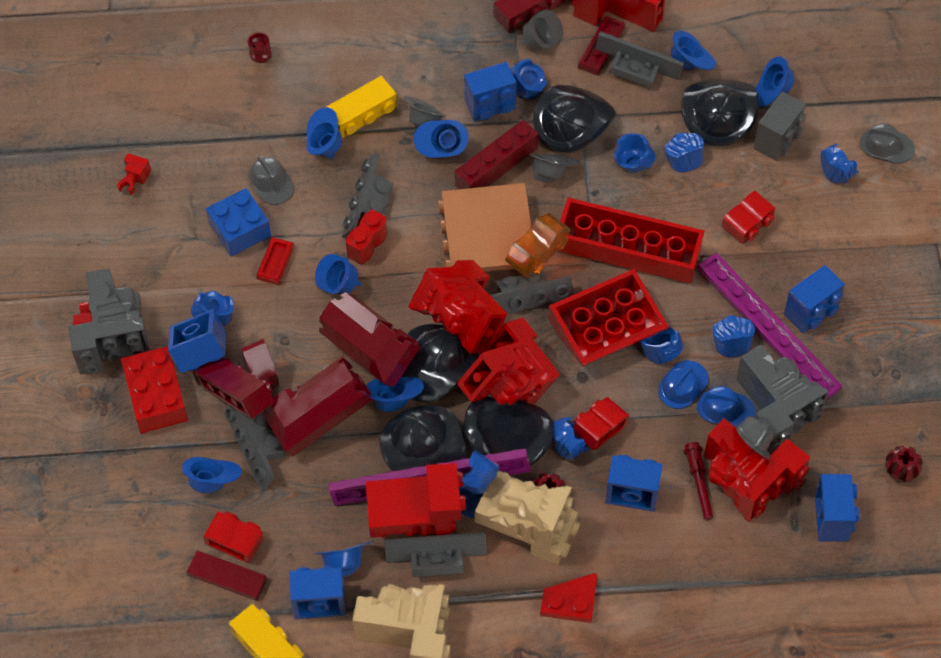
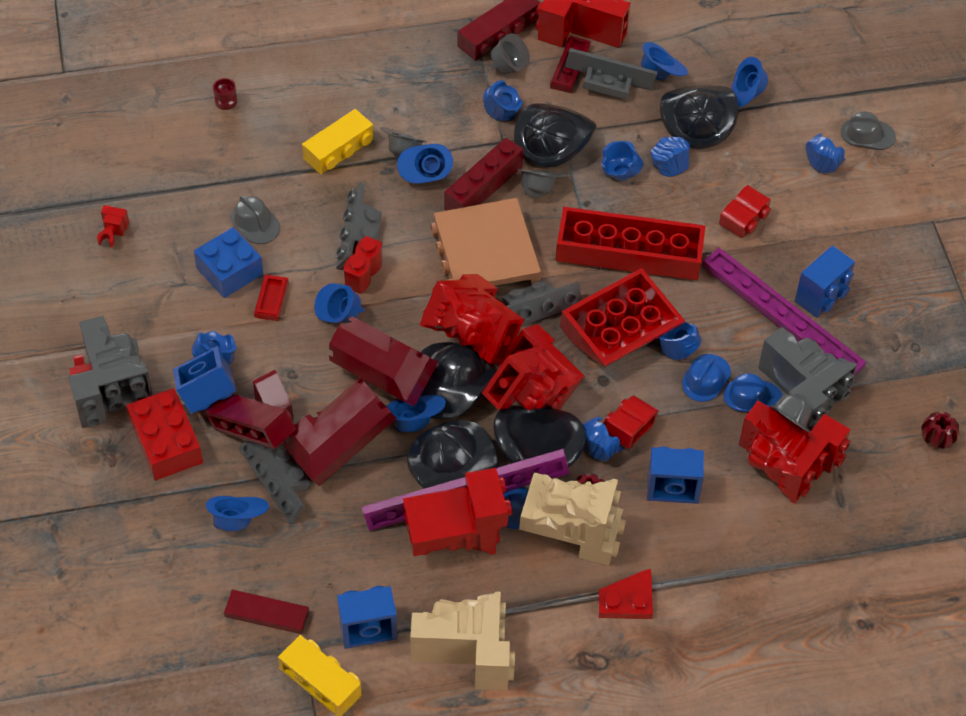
camera: 10 degrees left, 5 degrees down
(233, 536) = (269, 571): red brick -> none
(323, 133) = (304, 169): blue piece -> none
(347, 559) = (394, 577): blue piece -> none
(436, 553) = (483, 565): dark grey bracket -> none
(482, 473) = (522, 478): blue hair -> none
(490, 91) = (467, 114): blue brick -> none
(538, 245) = (541, 254): clear orange brick -> none
(696, 466) = (729, 442): dark red pin -> none
(733, 336) = (749, 325): blue hair -> none
(780, 126) = (762, 123): dark grey brick -> none
(836, 507) = (881, 478): blue brick -> none

